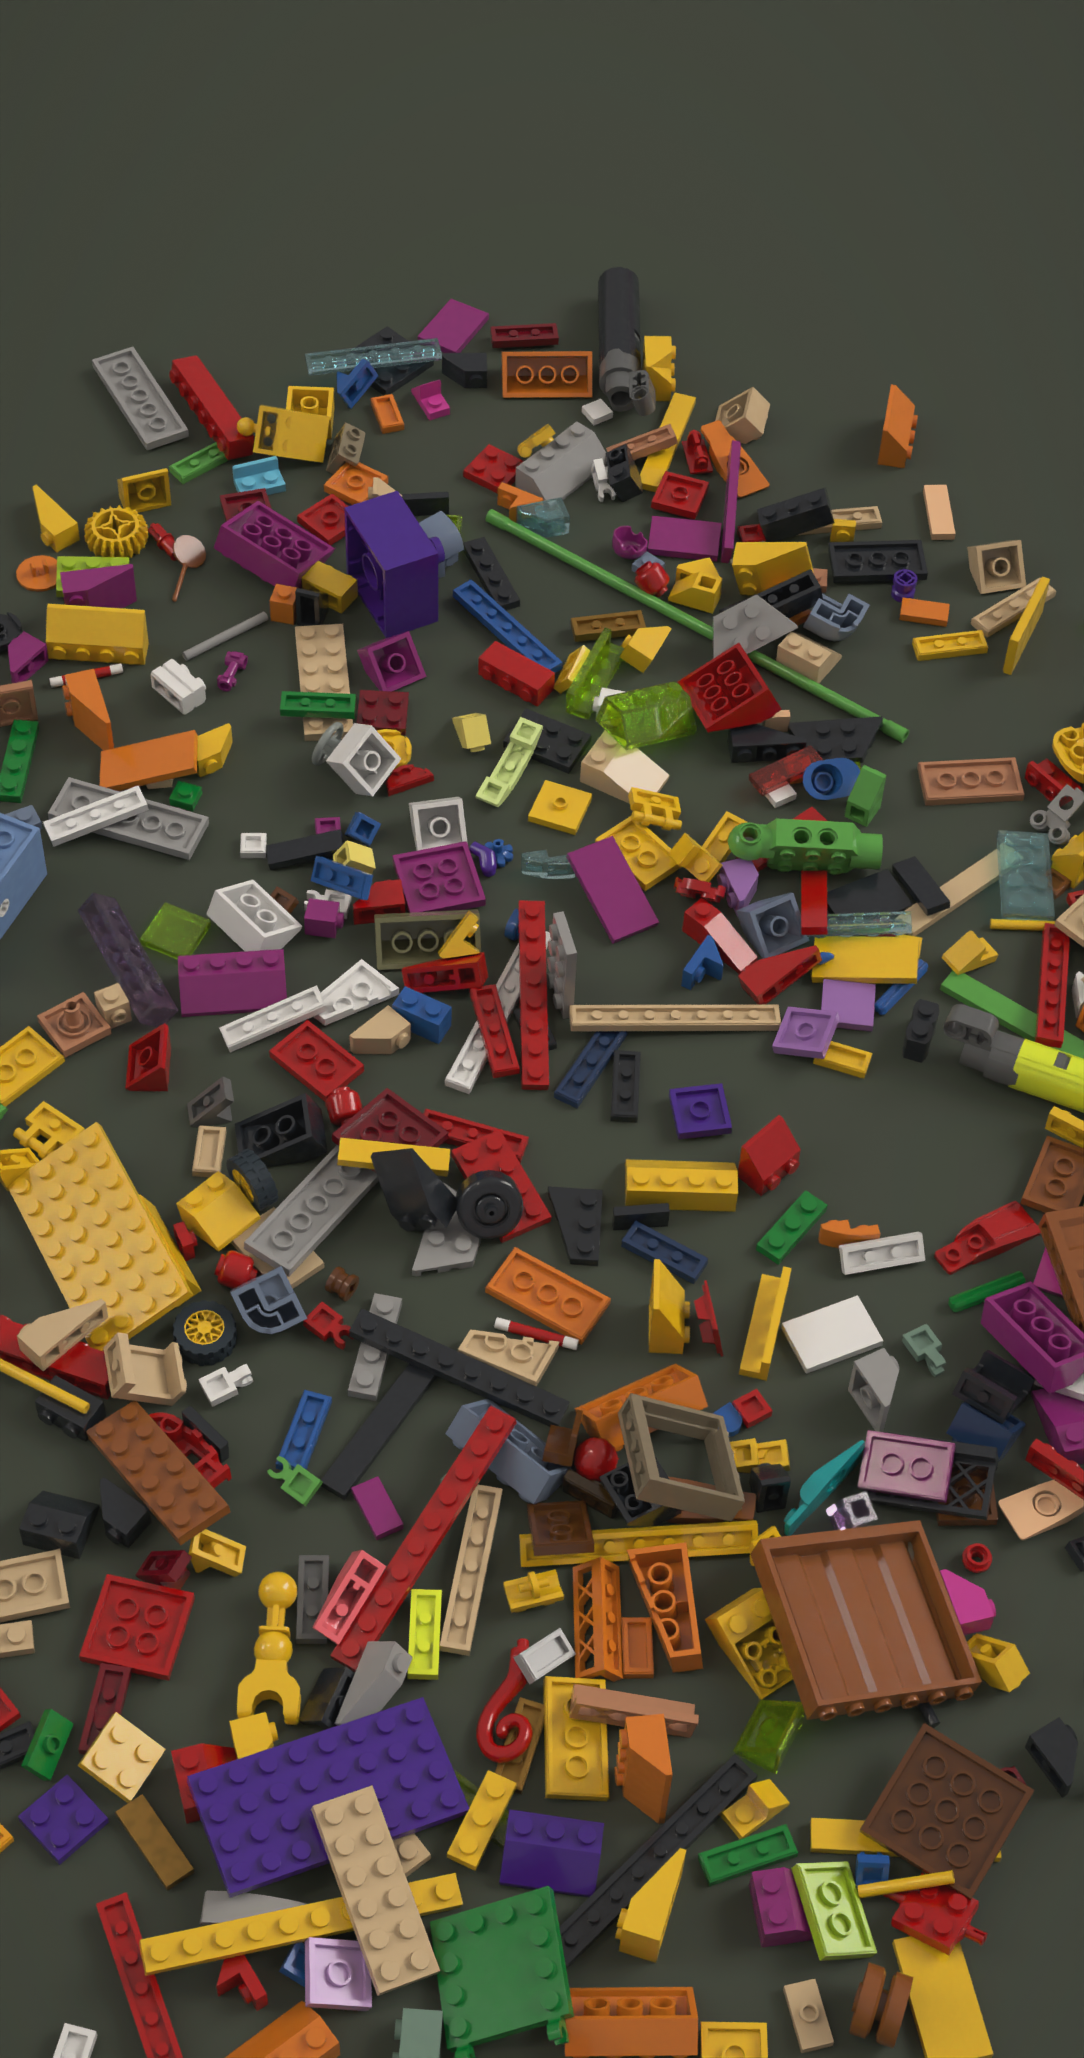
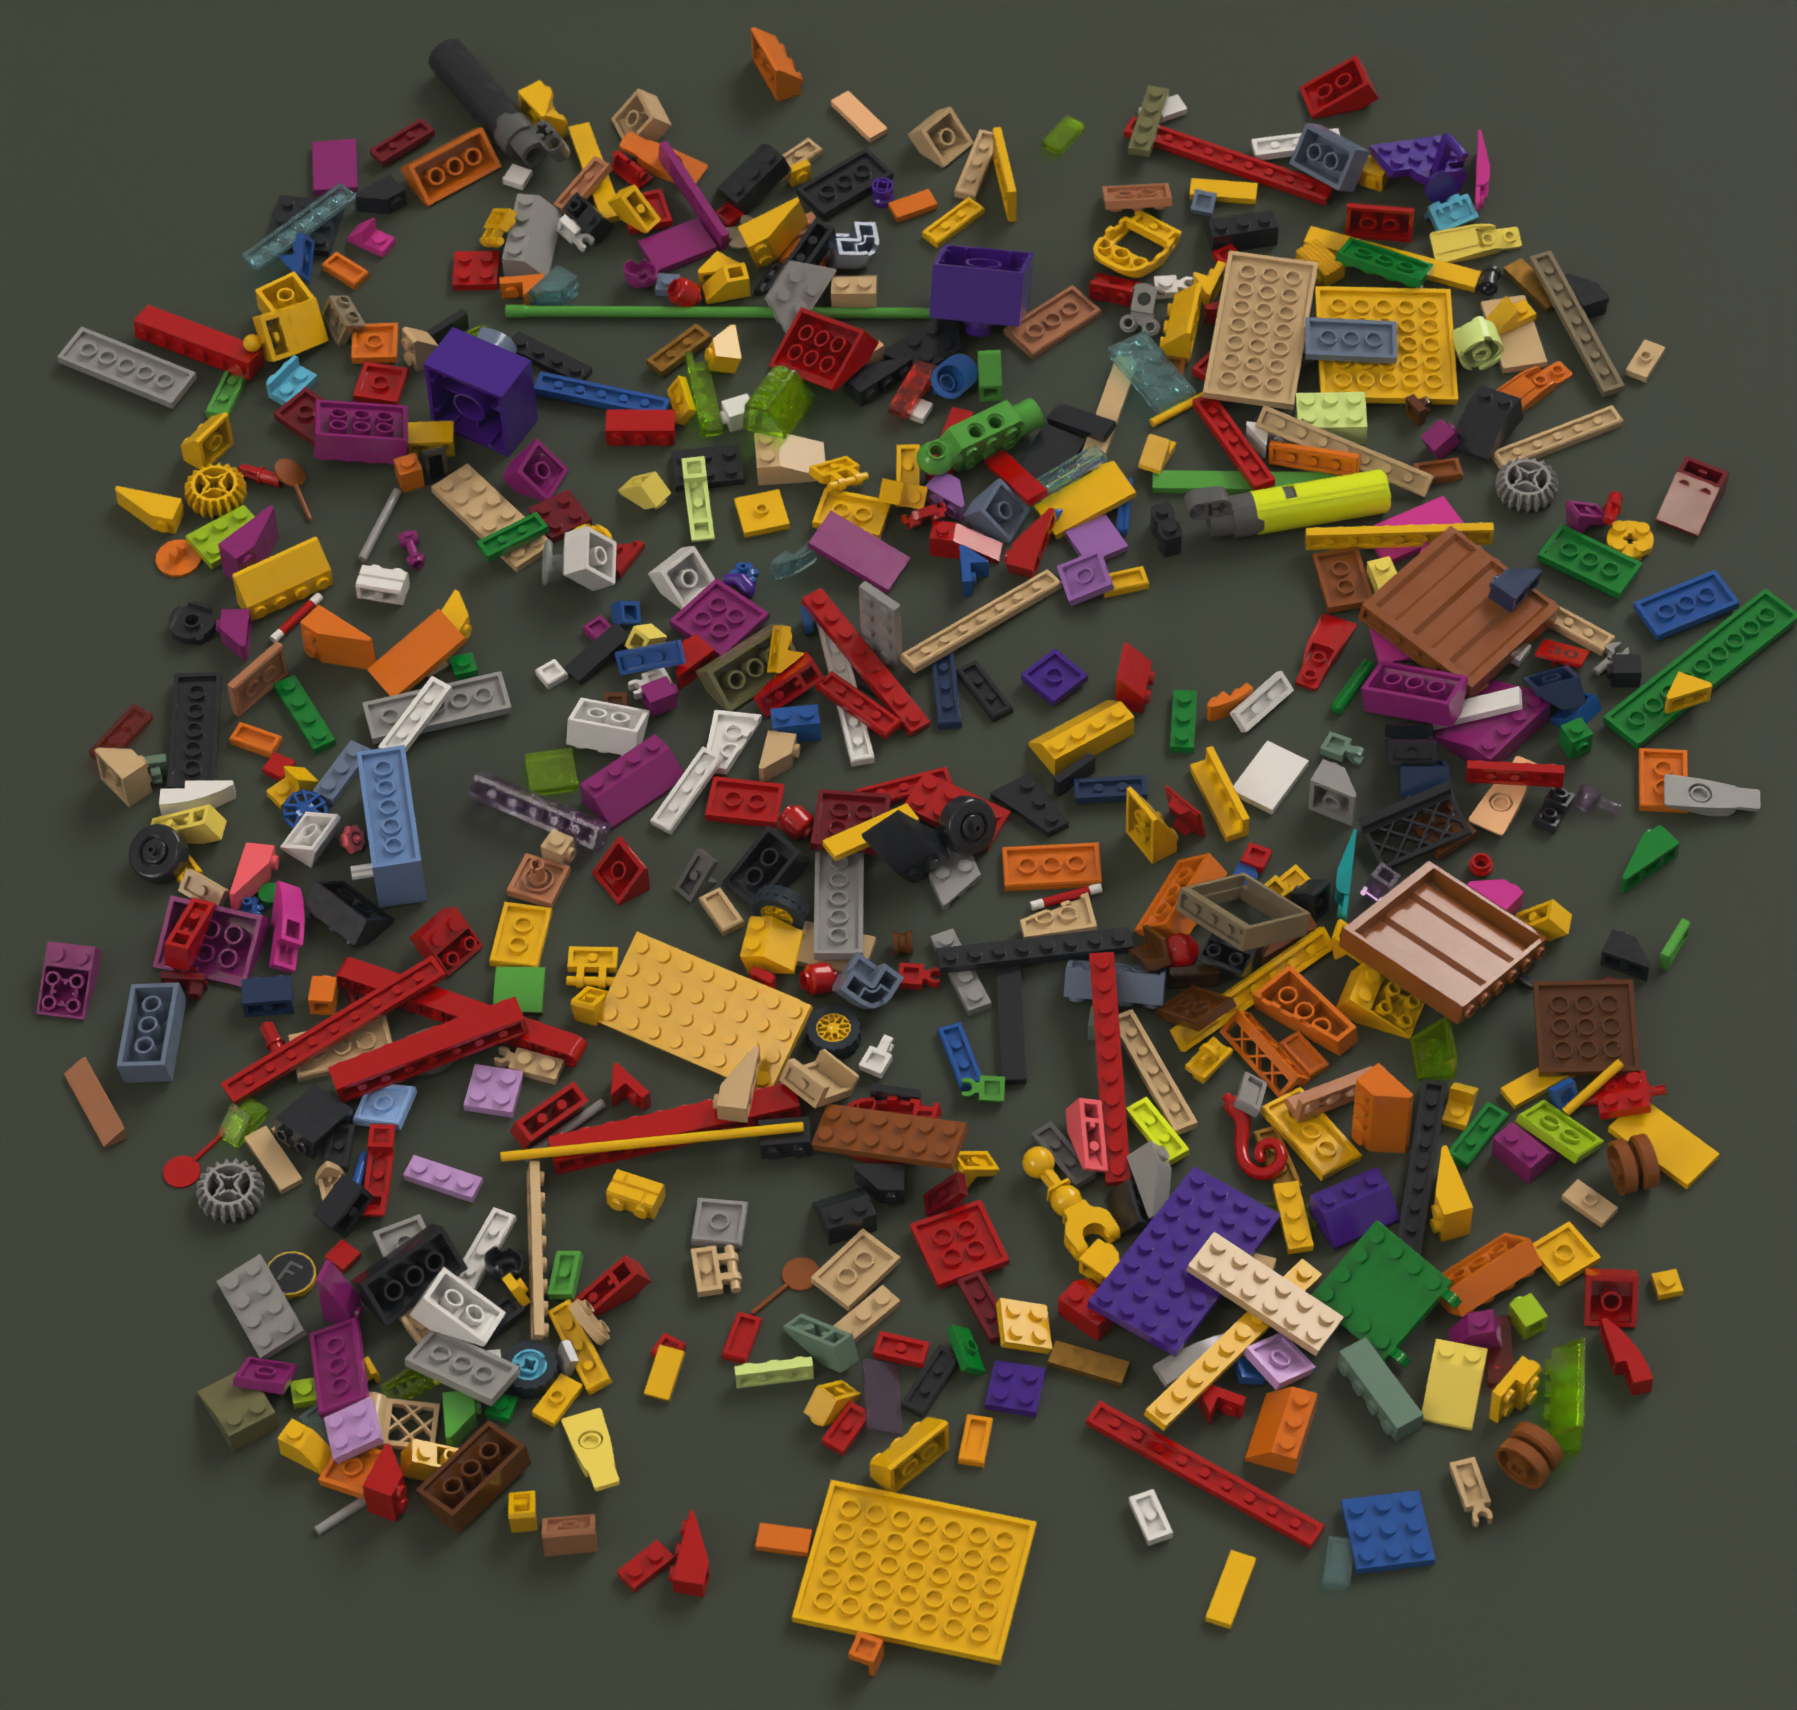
camera: 30 degrees left, 0 degrees up
(377, 1508) = (1054, 1074): magenta tile -> none
(666, 485) = (634, 209): none -> yellow slope
(906, 1466) = (1393, 830): tile -> none
(914, 709) = (981, 287): none -> dark purple brick

